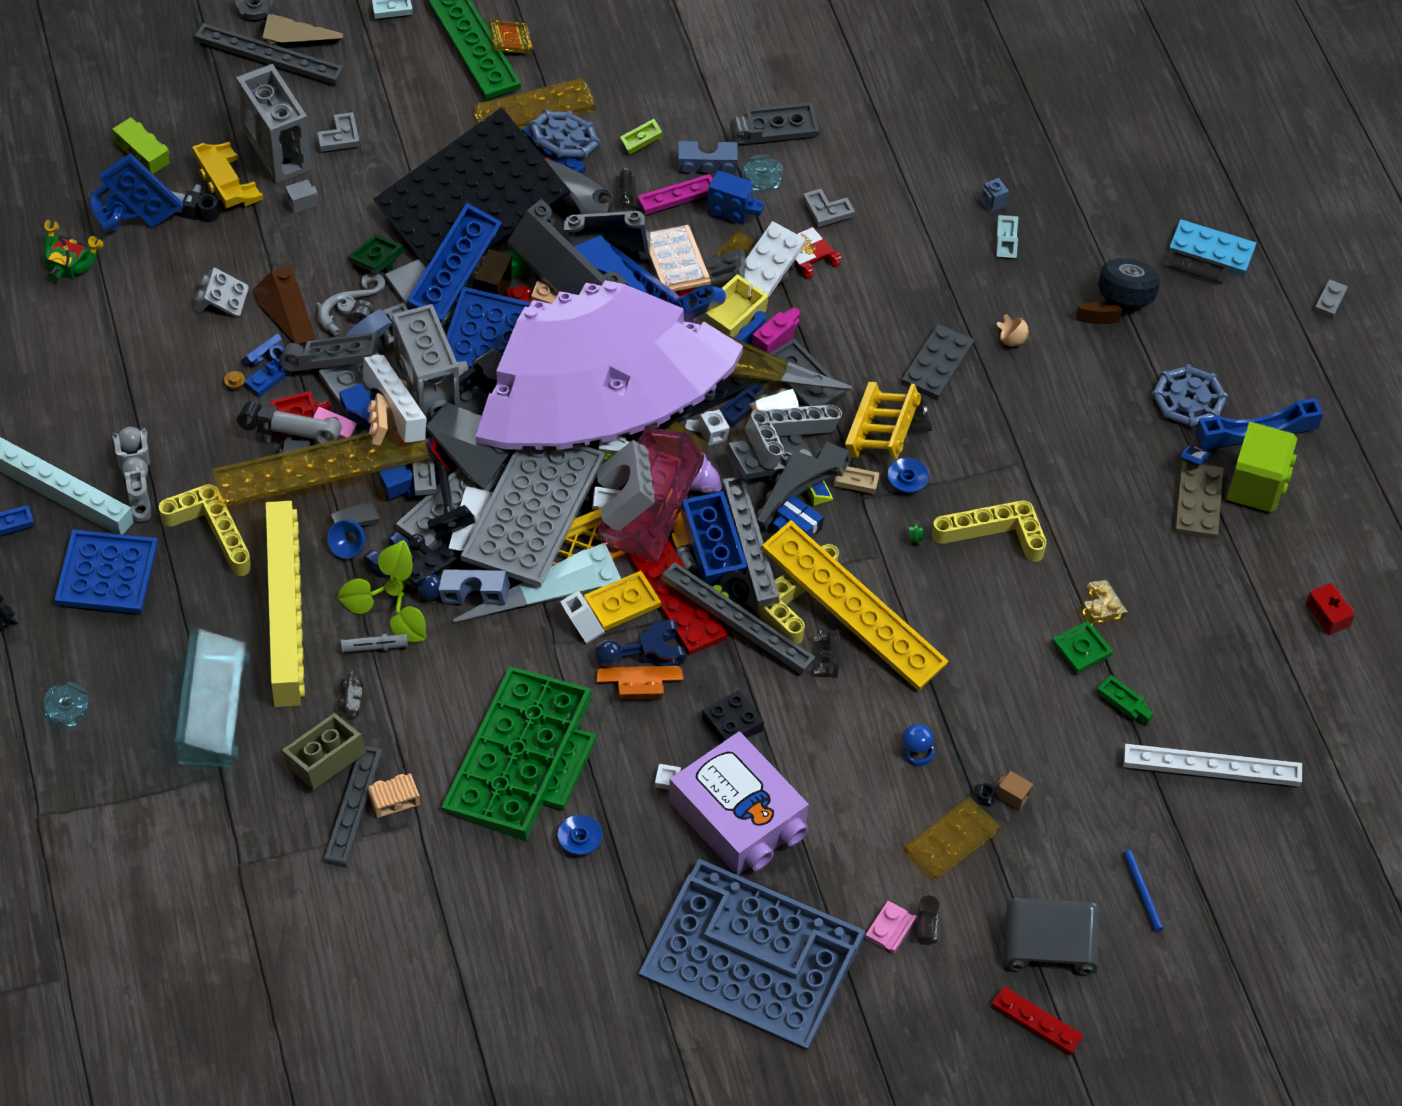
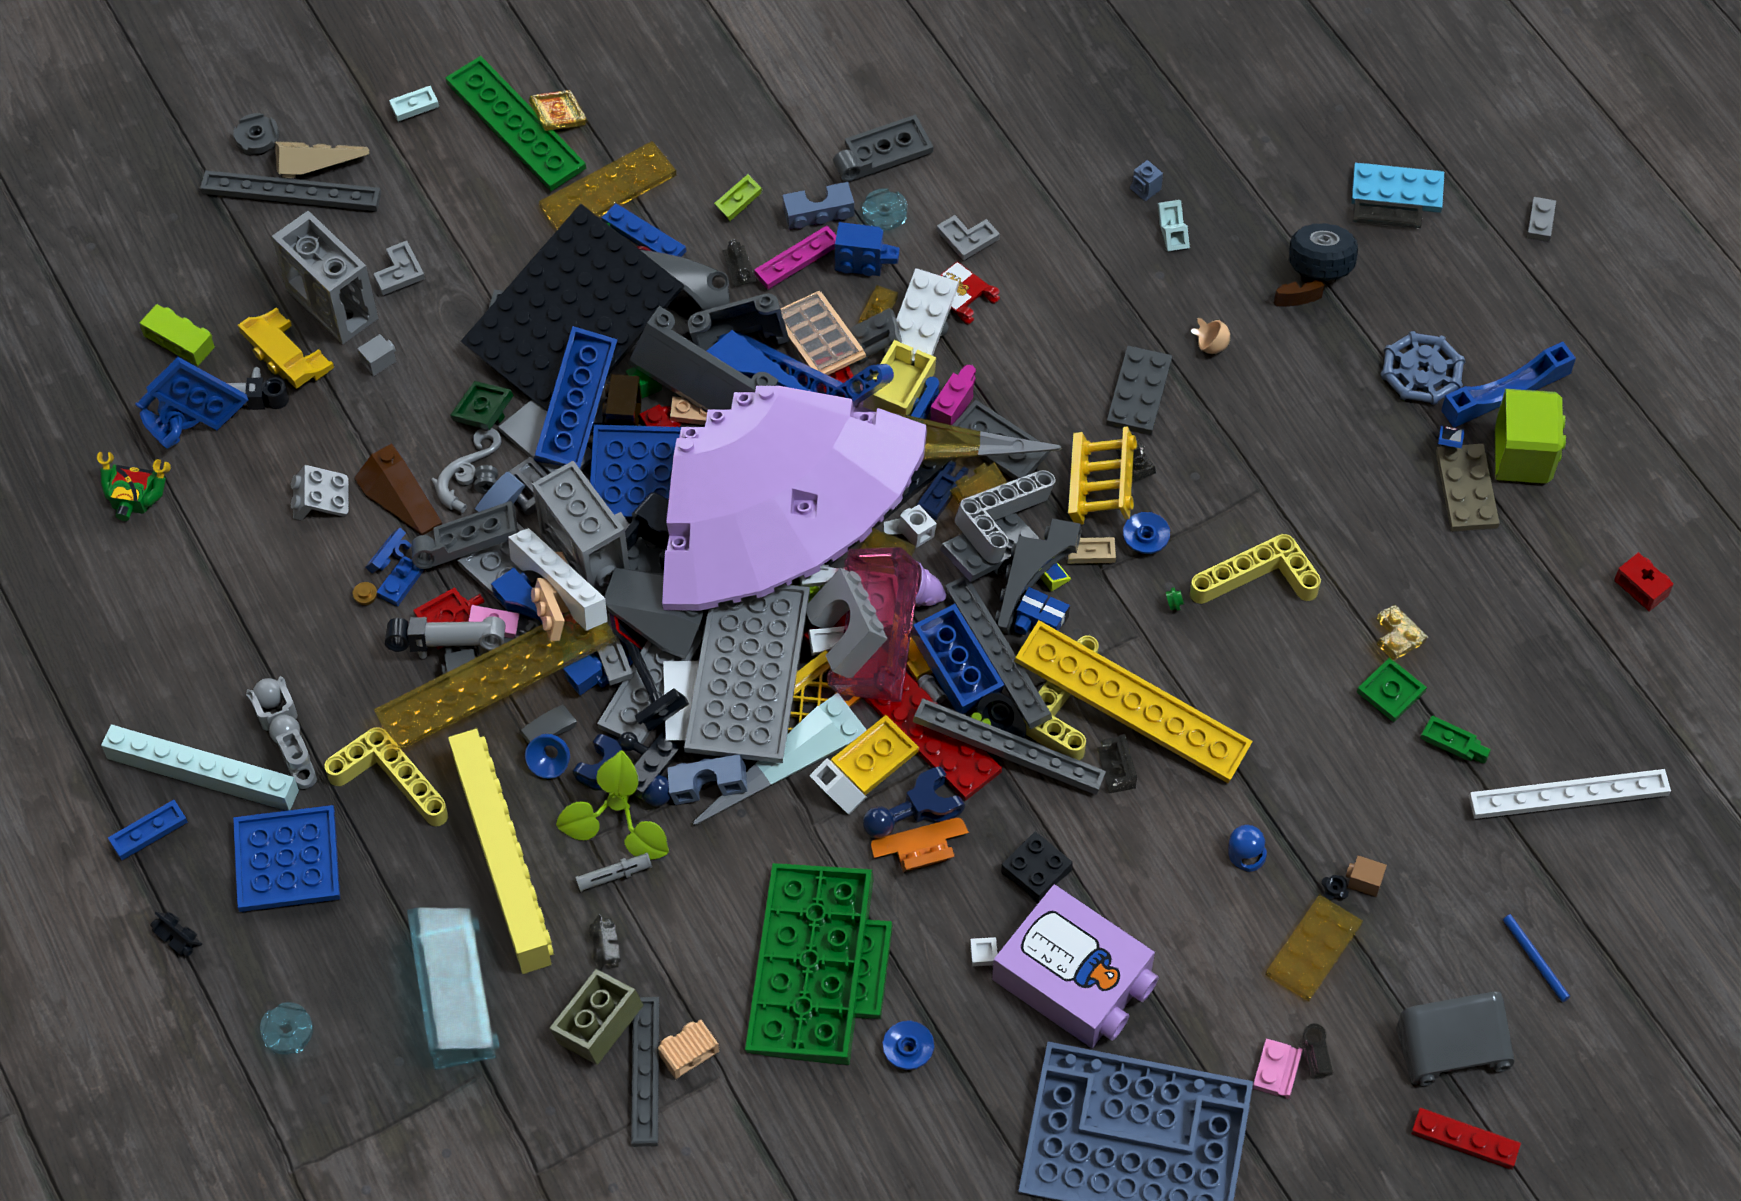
camera: 10 degrees left, 5 degrees up
(565, 134) = (640, 214): sand blue plate -> none

